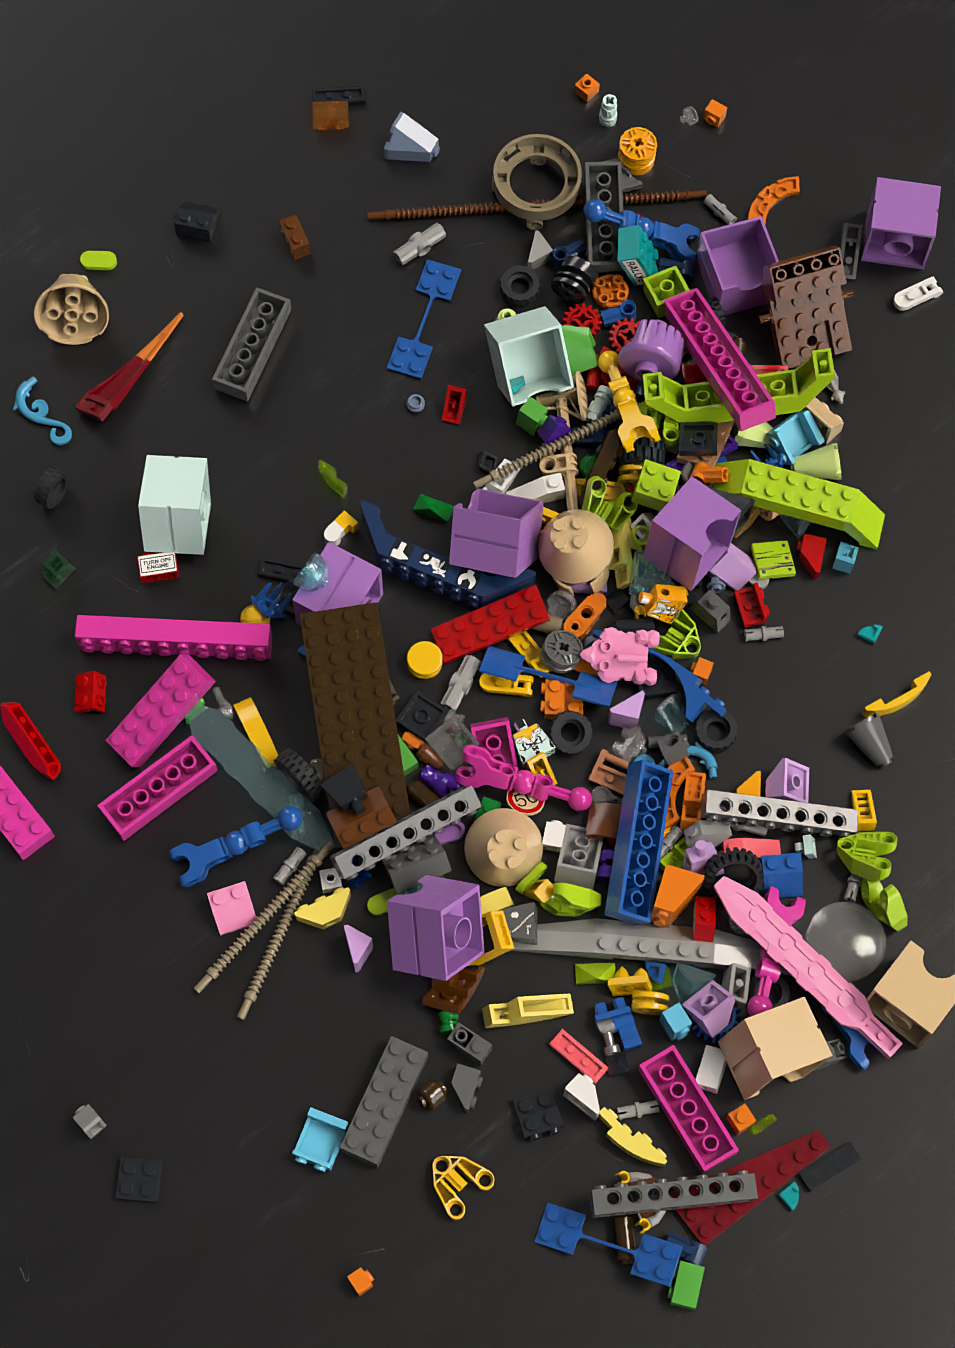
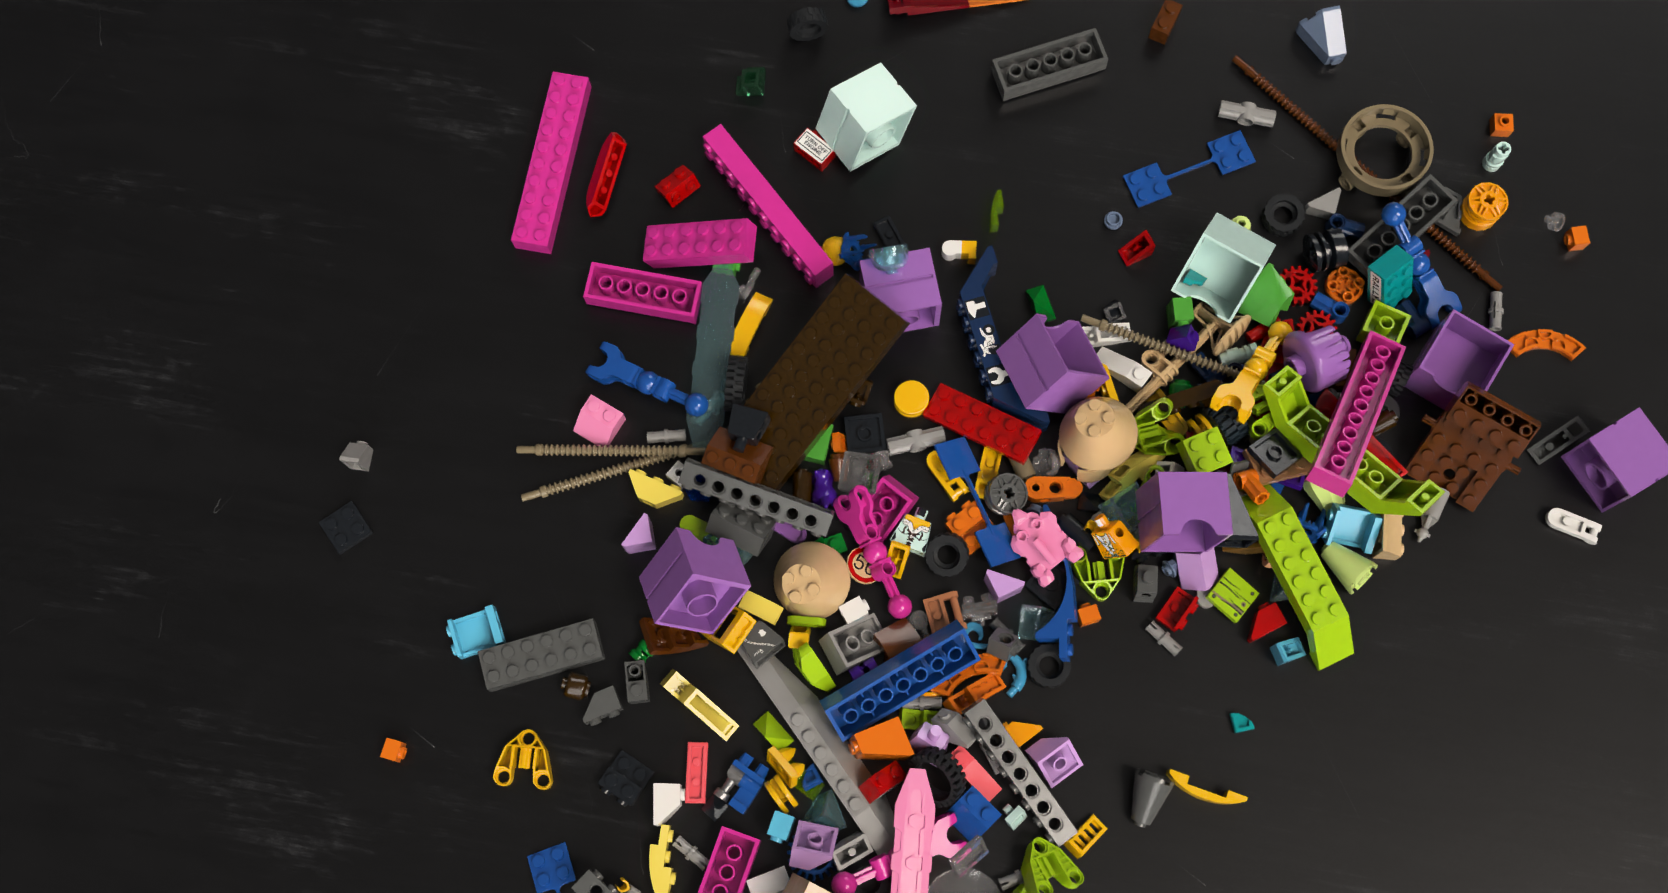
camera: 55 degrees right, 5 degrees up
(811, 902) = (968, 856): none -> clear tile

